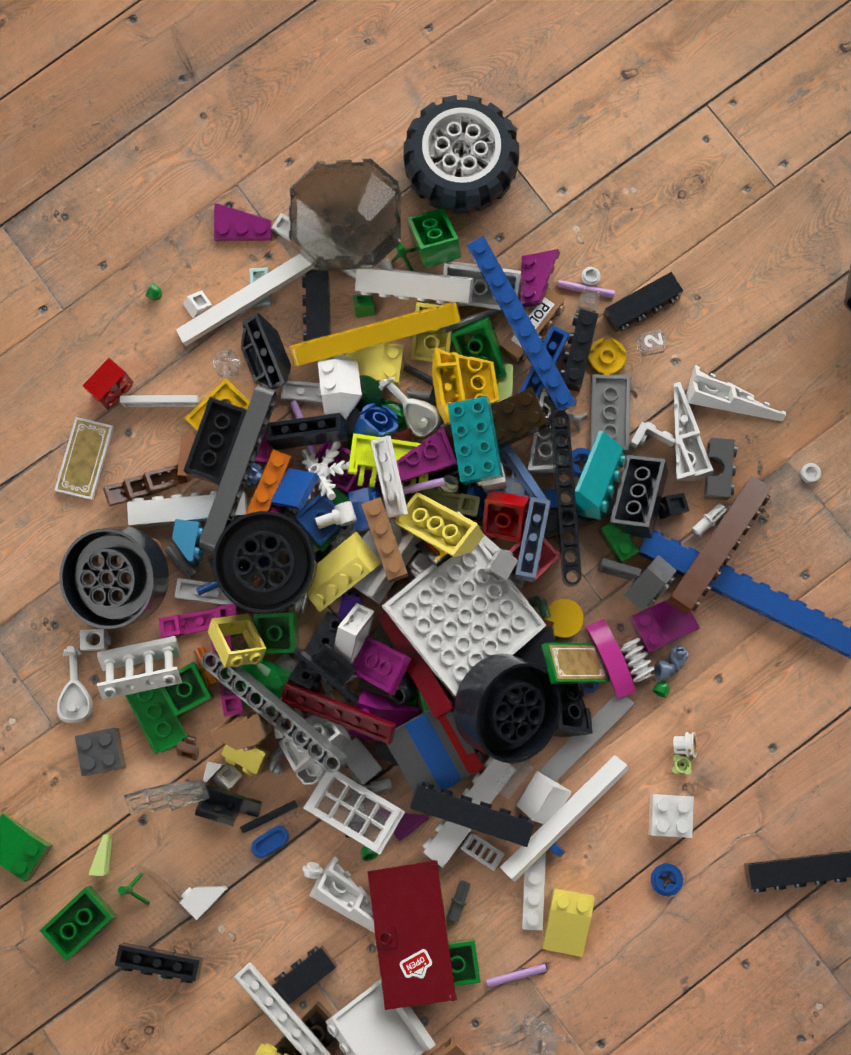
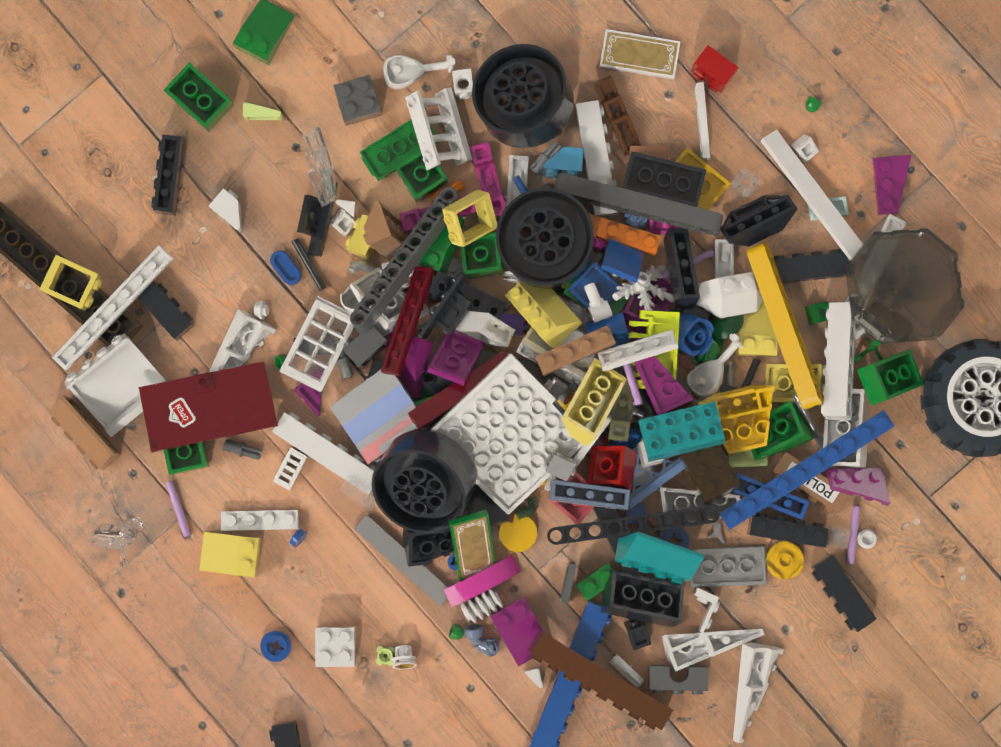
camera: 85 degrees right, 5 degrees up
(129, 890) = (231, 140): green plant -> none
(188, 749) = (365, 183): reddish brown tile -> none
(451, 484) = (640, 412): white plate -> none
(472, 815) = (321, 455): black brick -> none
(542, 798) = (342, 523): white slope -> none
(564, 818) = (326, 545): white tile -> none
(651, 343) = (801, 603): clear brick -> none
(651, 583) = (556, 614): dark grey brick -> none
(710, 610) = (535, 676): none -> white slope

